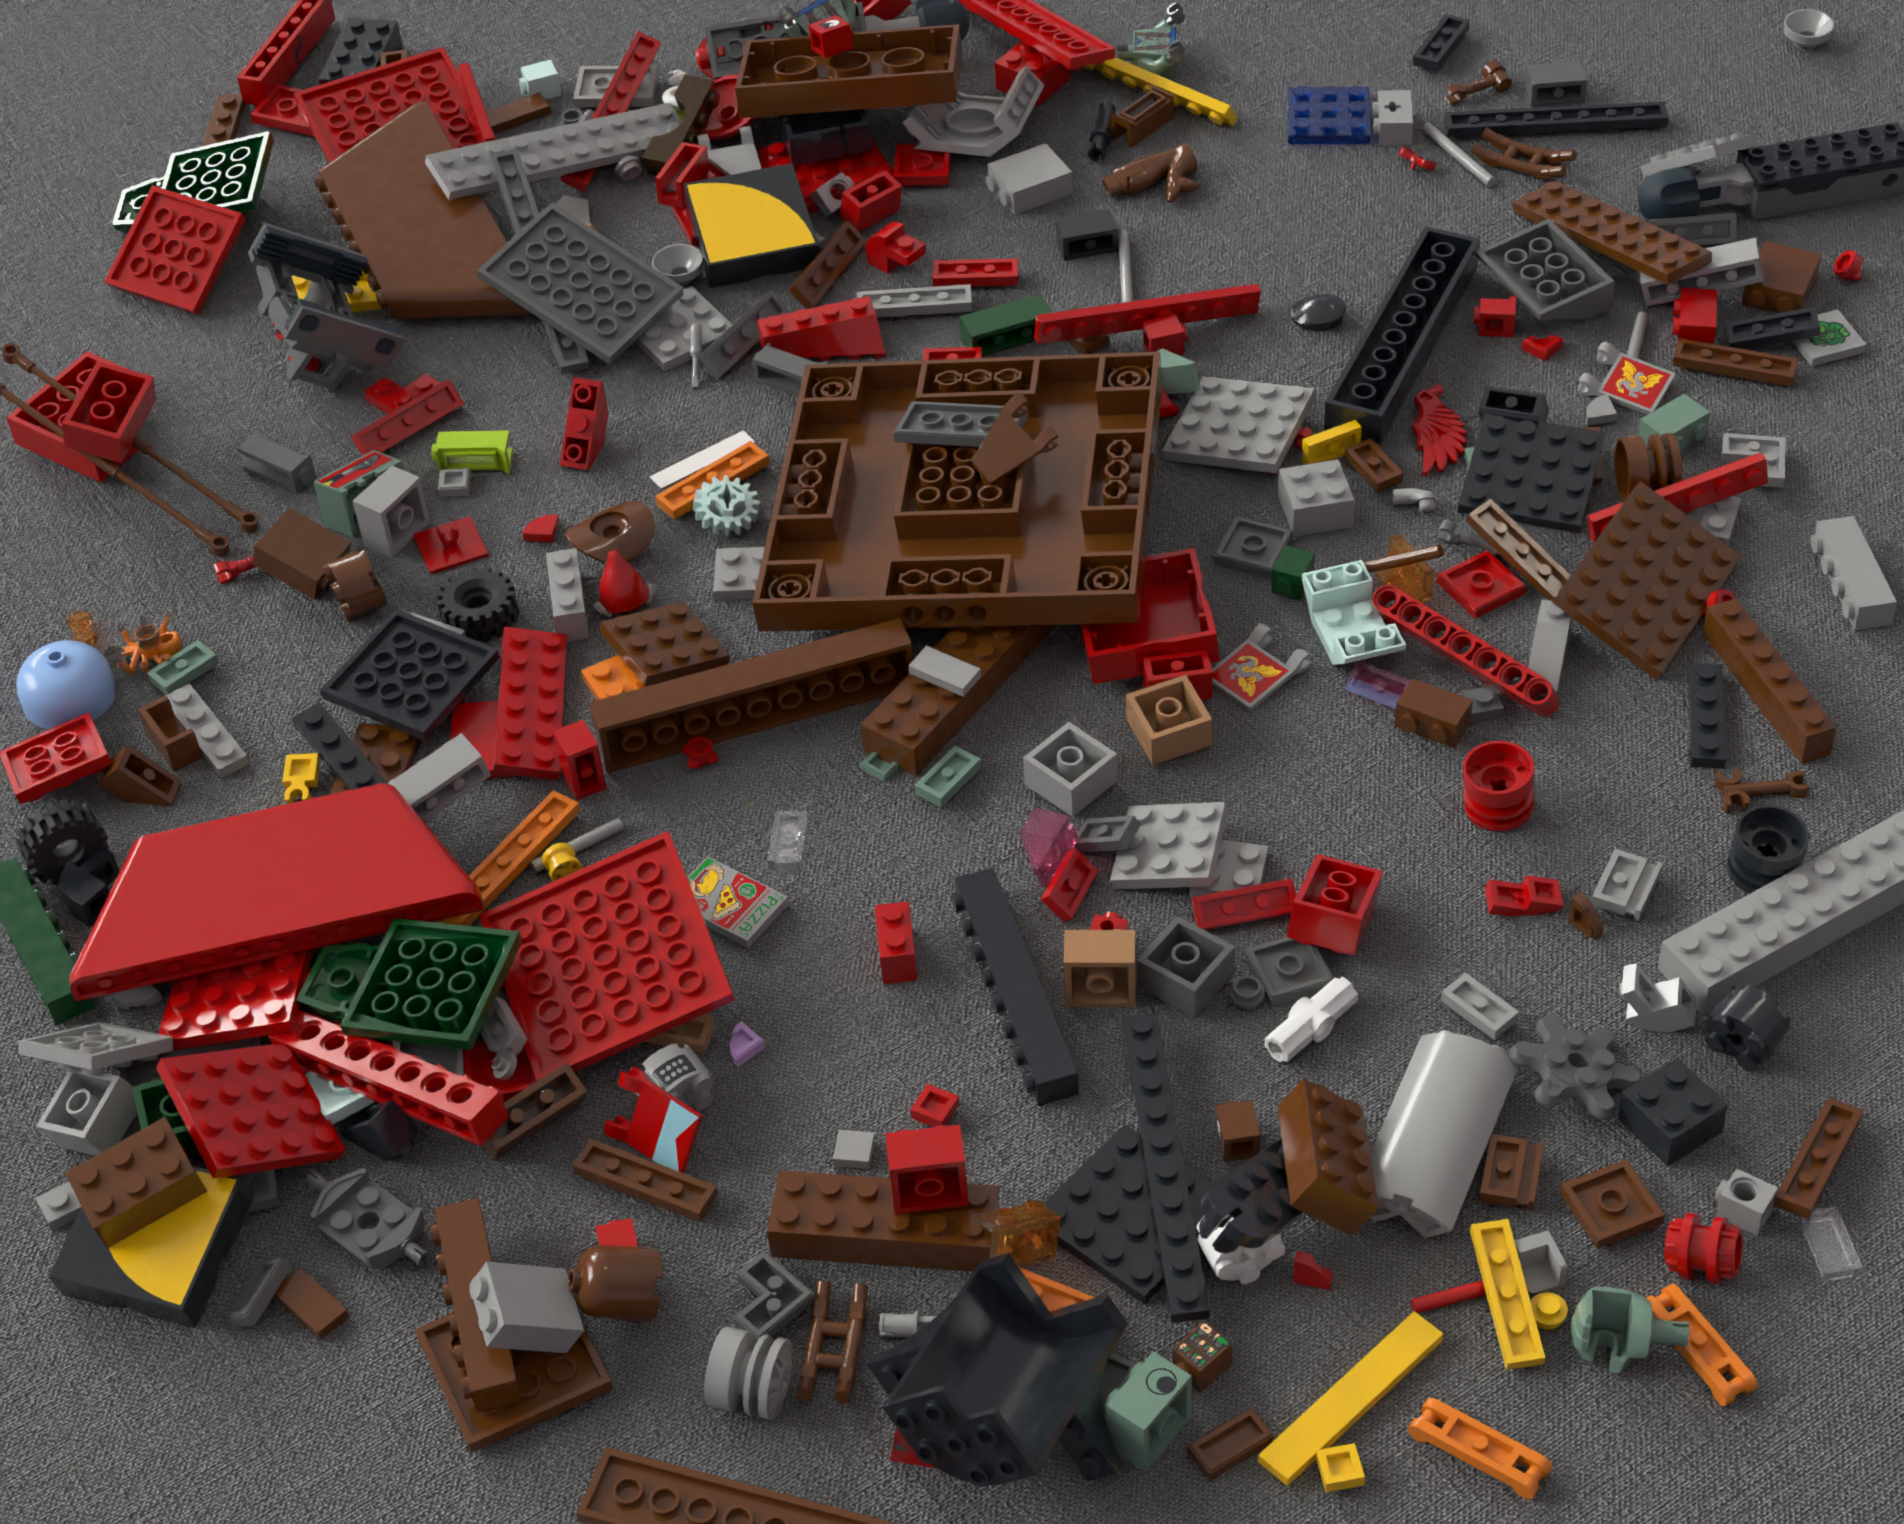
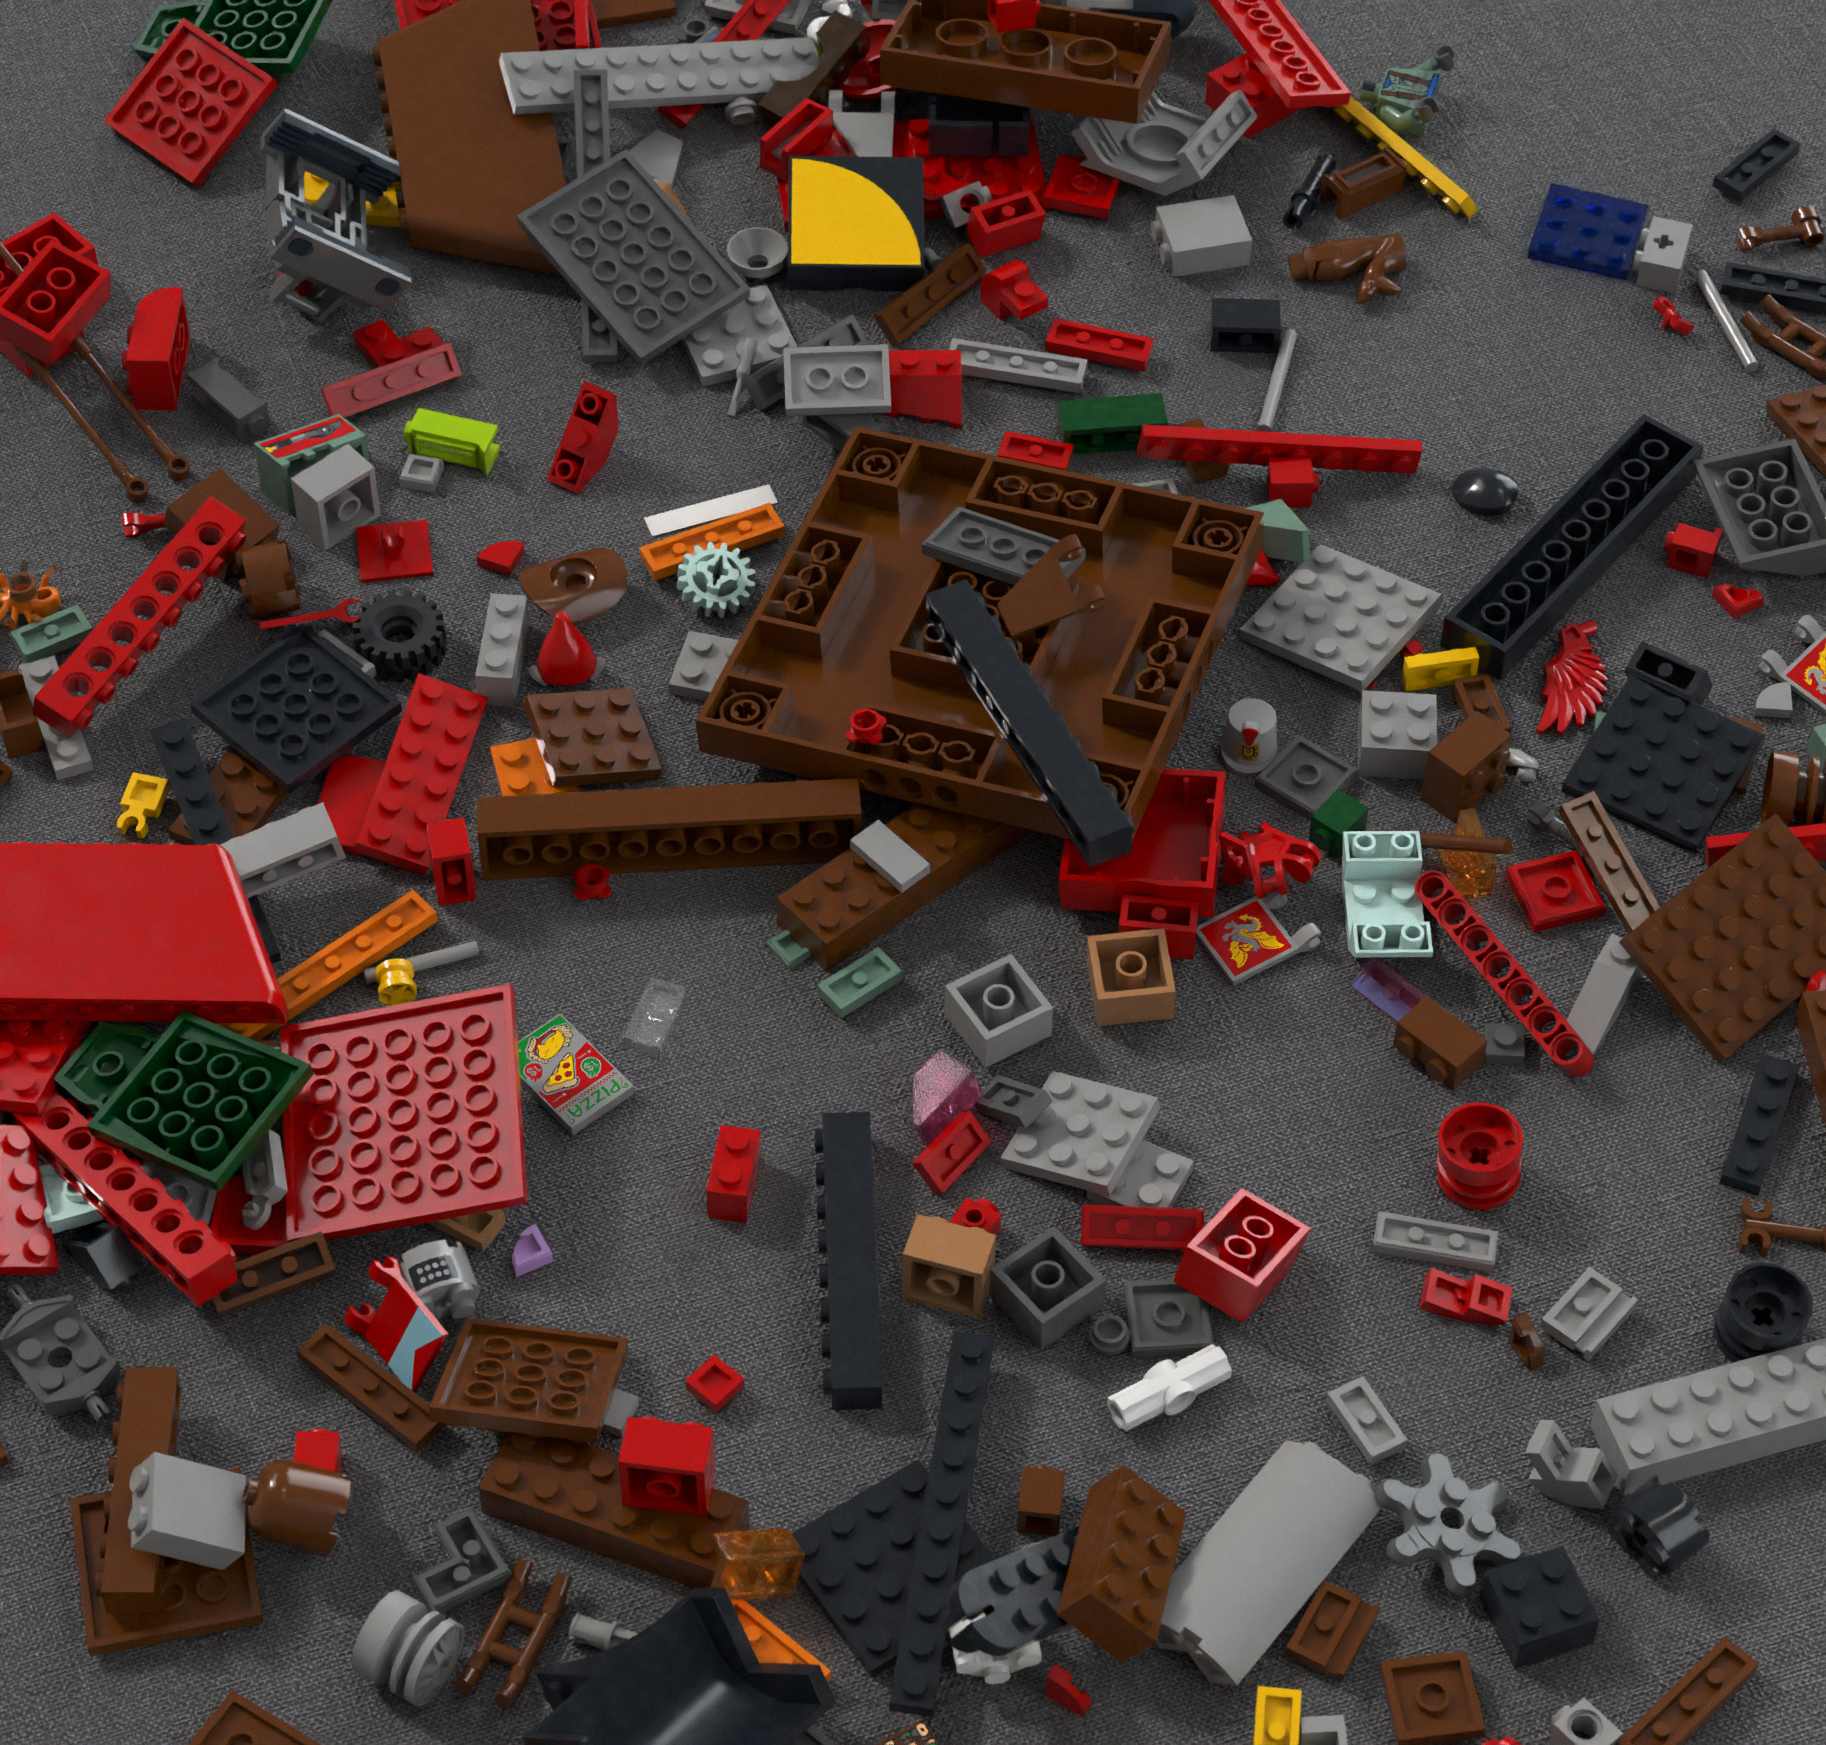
camera: 10 degrees right, 5 degrees up
(205, 435) = (157, 350): none -> red brick
(257, 635) = (210, 523): none -> red brick
(423, 596) = (339, 612): none -> red flag
(778, 336) = (837, 380): none -> light grey plate
(781, 1138) = (529, 1380): none -> reddish brown plate
(896, 573) = (866, 727): none -> red plate
(1031, 540) = (1030, 723): none -> black brick
(1199, 524) = (1249, 737): none -> light grey hat
(1246, 599) = (1267, 848): none -> red piece
(1381, 506) = (1466, 766): none -> reddish brown brick
(1483, 861) = (1435, 1241): none -> light grey tile

